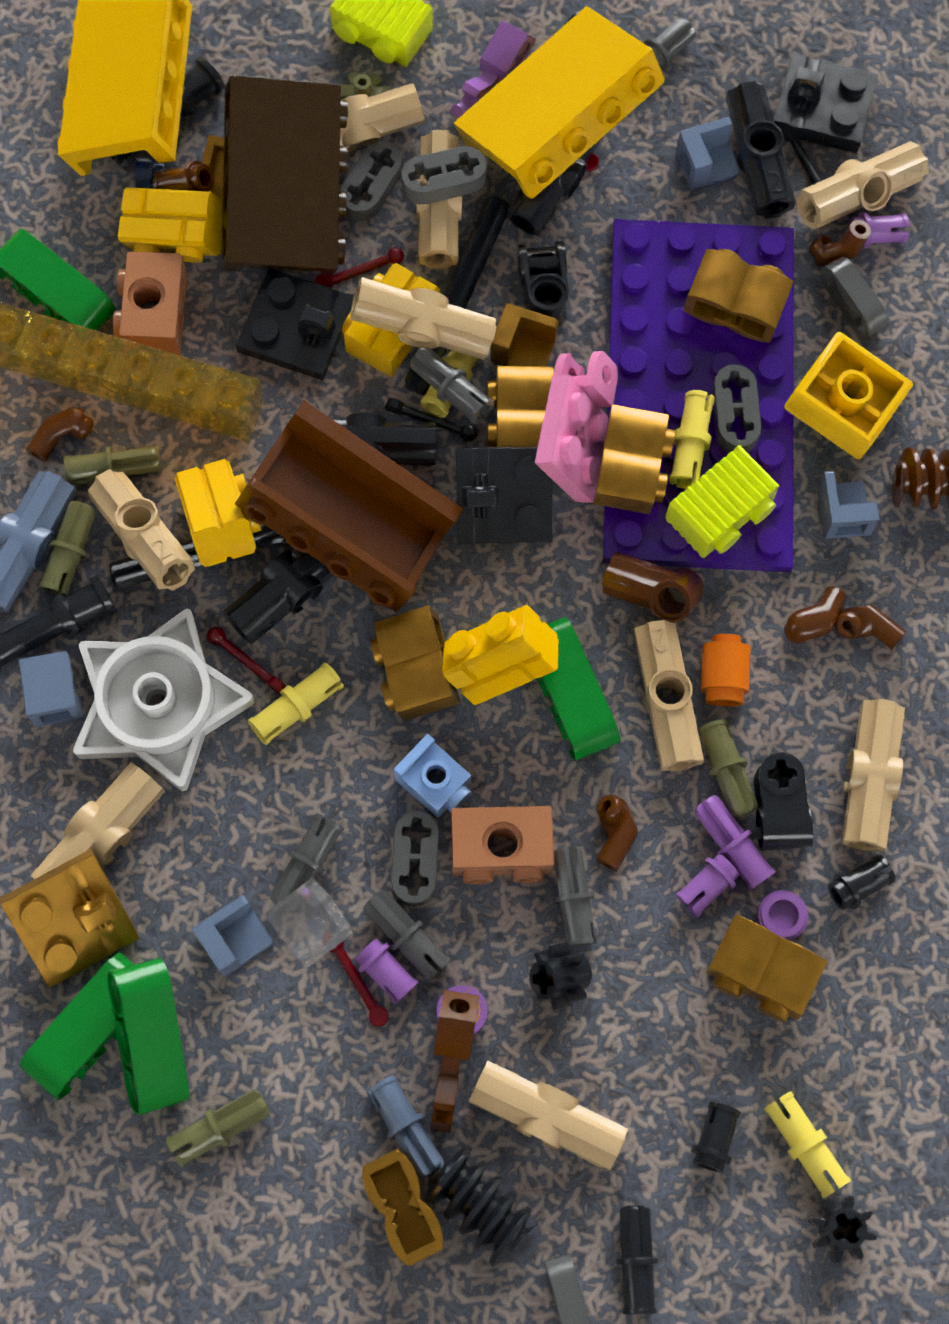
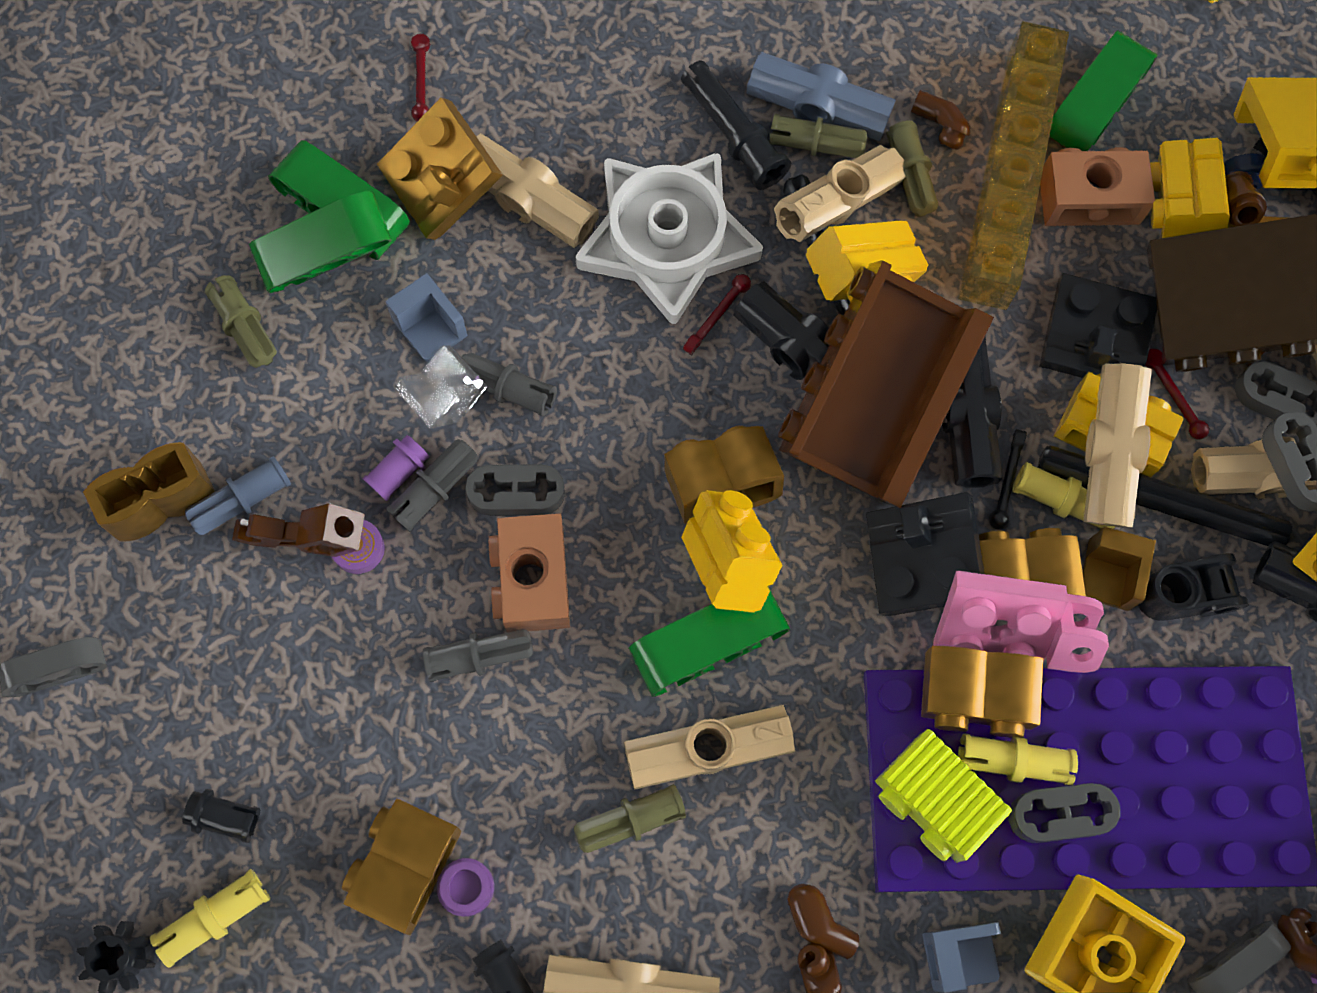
camera: 85 degrees right, 0 degrees up
(49, 689) = (666, 127): sand blue panel -> none
(295, 703) = (672, 361): light yellow pin -> none
(378, 1015) = (354, 466): dark red hinge -> none
(413, 771) = (600, 521): light blue brick -> none
(451, 385) = (1044, 486): dark grey axle -> none
(480, 1205) = (153, 570): black piece -> none
(548, 1115) = (244, 636): tan piece -> none
(560, 975) = (389, 640): black gear -> none
(619, 829) = (556, 701): reddish brown arm -> none
(637, 1260) = (95, 735): black axle -> none
(649, 585) = (829, 738): reddish brown piece -> none
(709, 883) = (496, 800): medium lavender pin -> none
(725, 670) = (744, 813): orange brick -> none
(733, 841) = (545, 828): medium lavender axle -> none
(738, 295) = (1213, 810): pearl gold brick -> none
(785, 810) = (578, 883): black piece -> none

